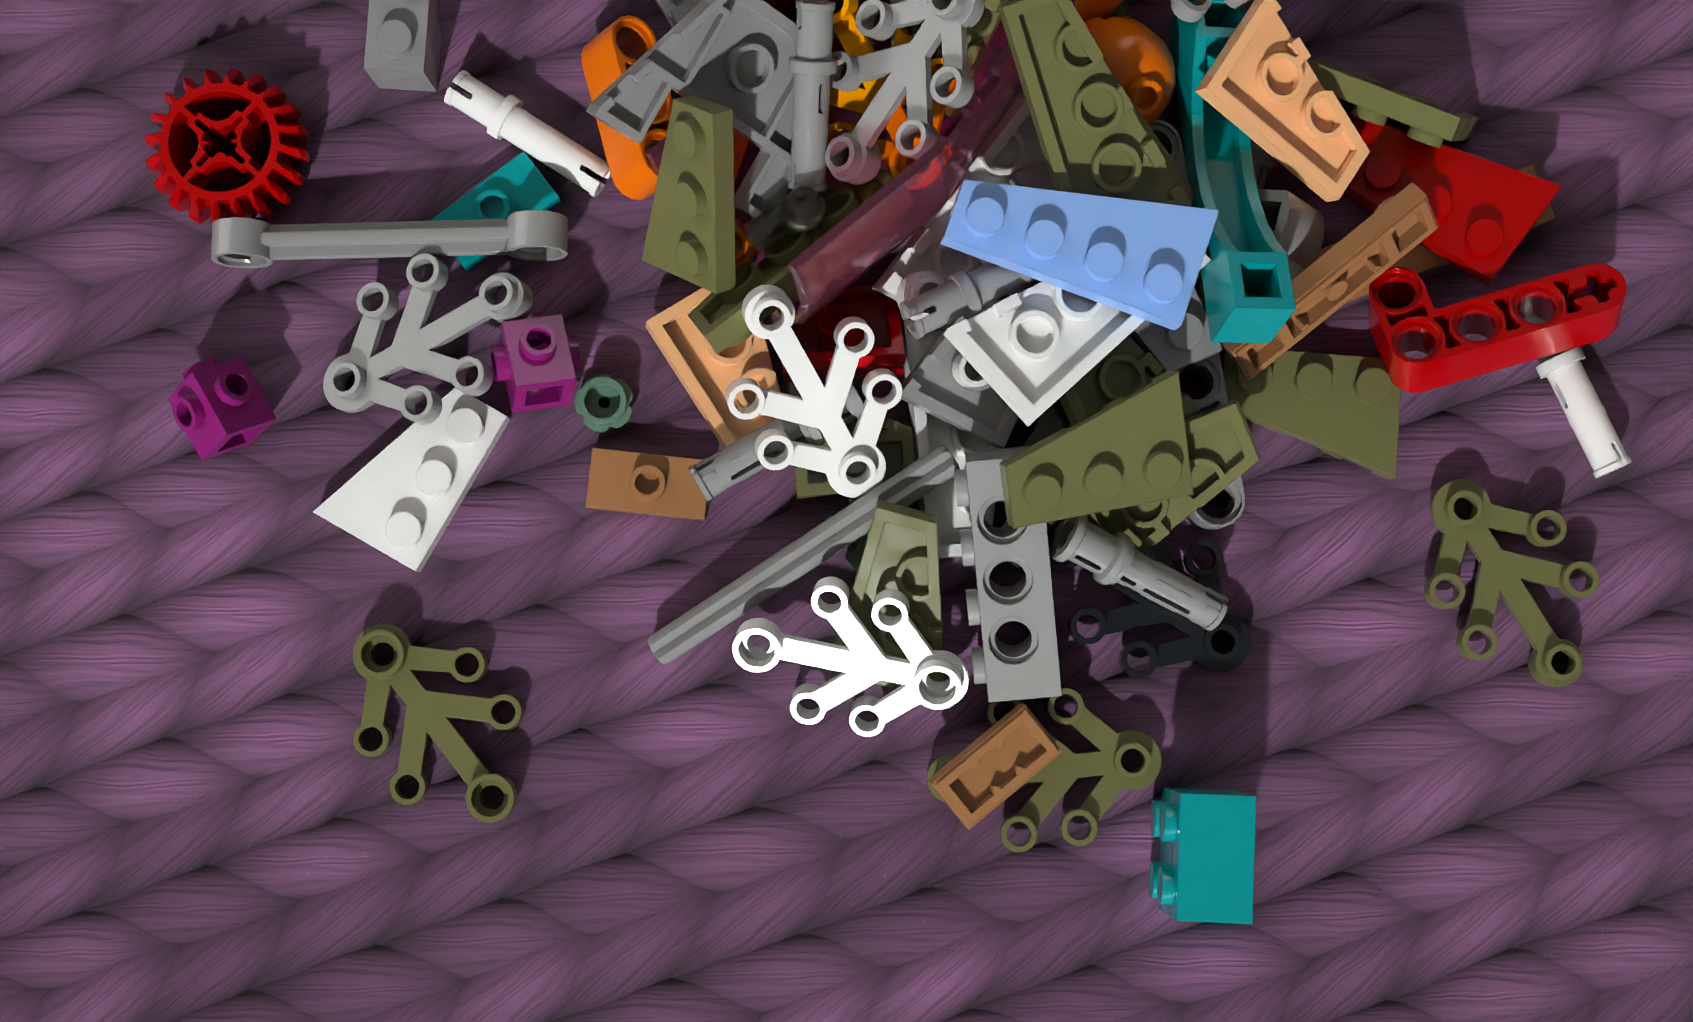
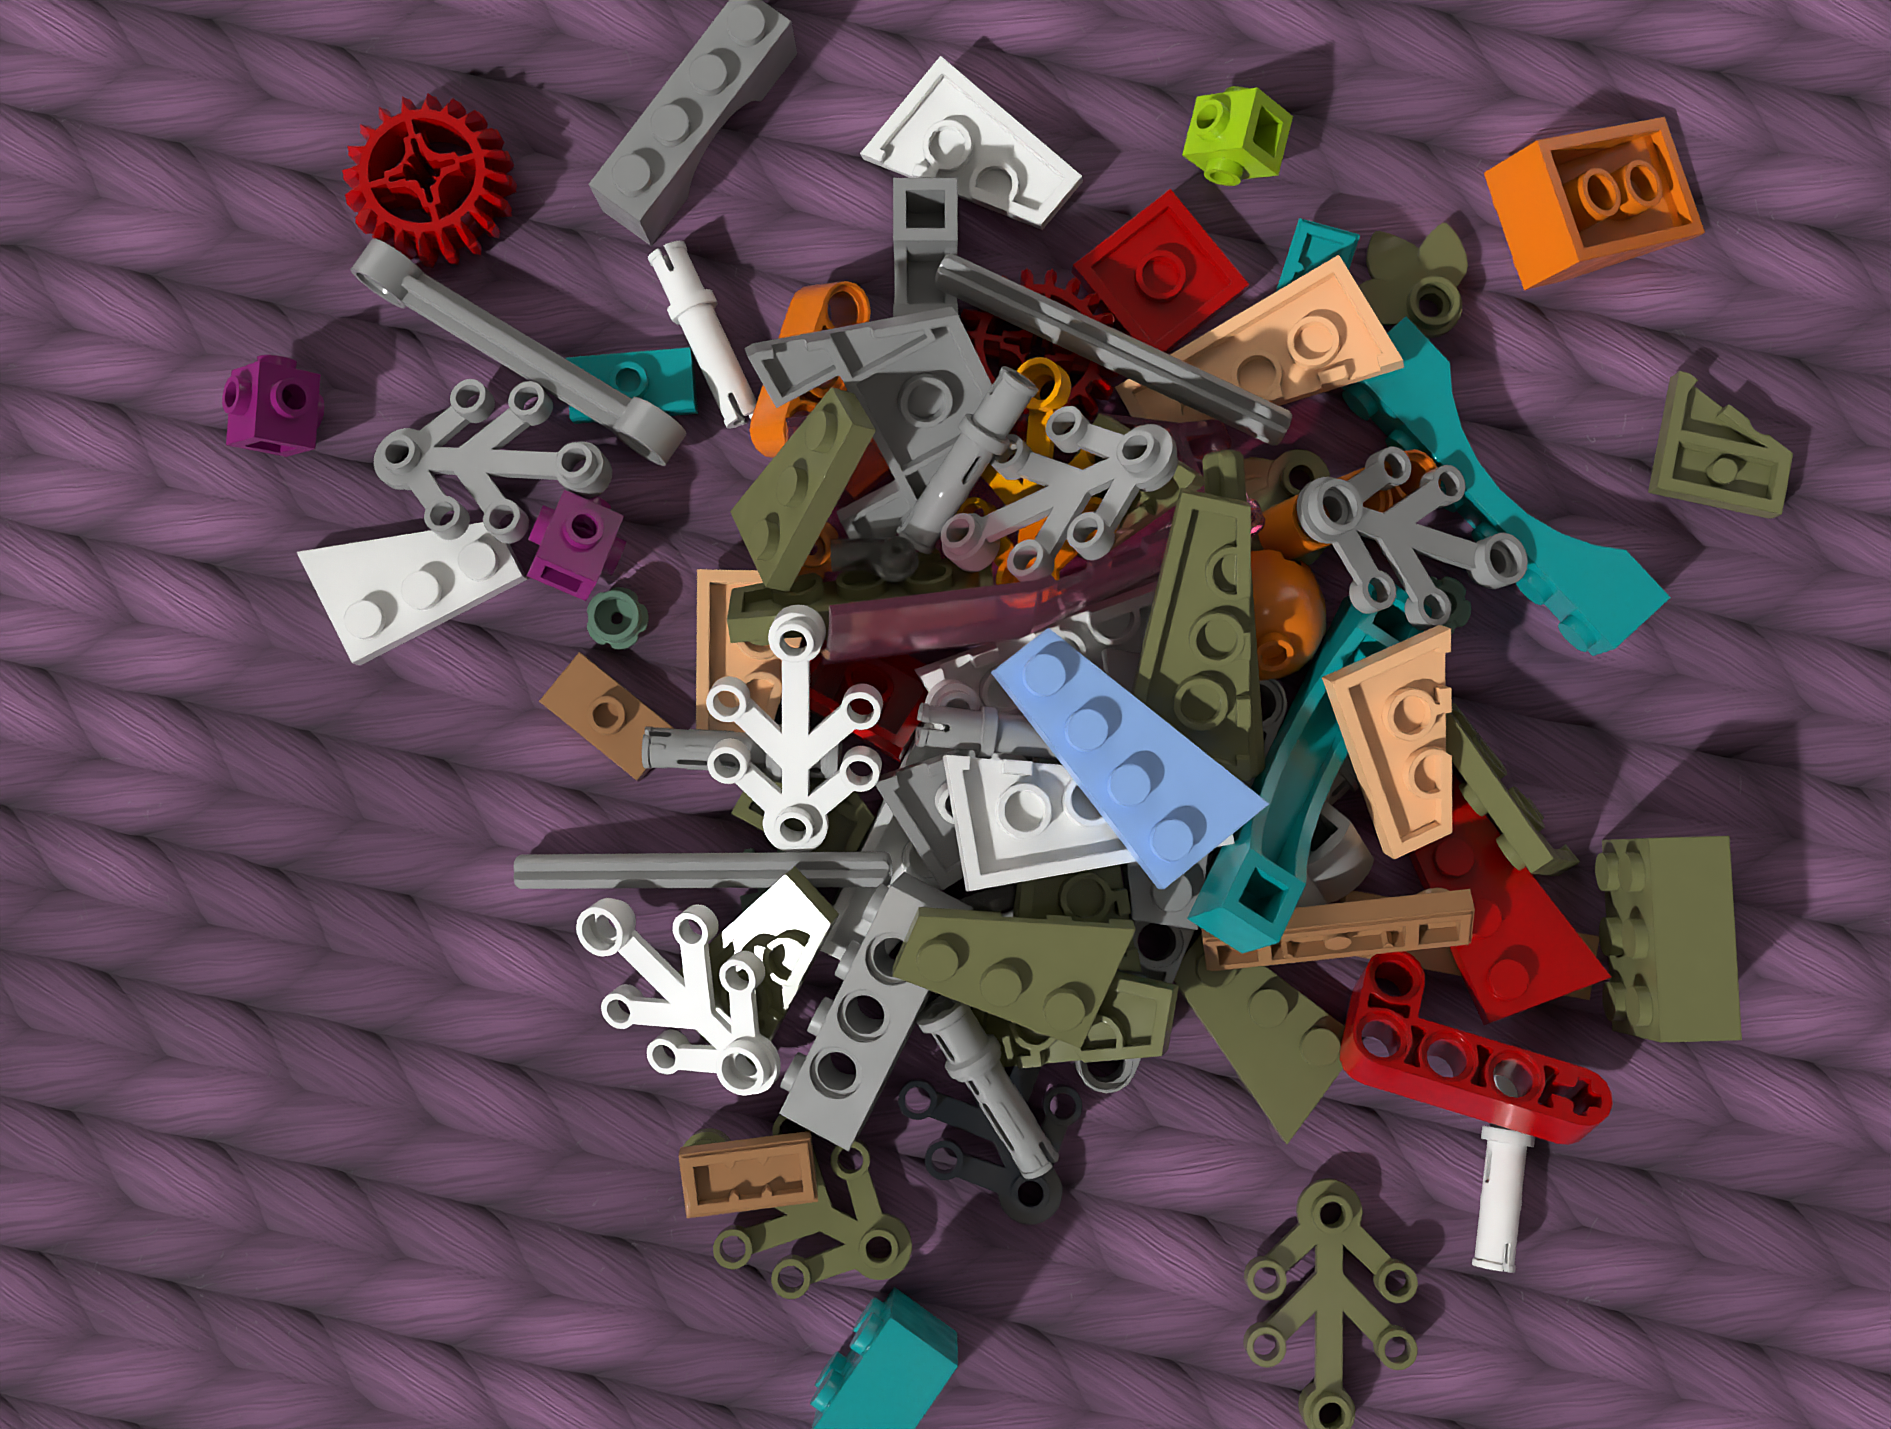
camera: 35 degrees right, 0 degrees up
(429, 714) = (282, 800): olive plant -> none
(1585, 126) = (1670, 938): none -> olive brick

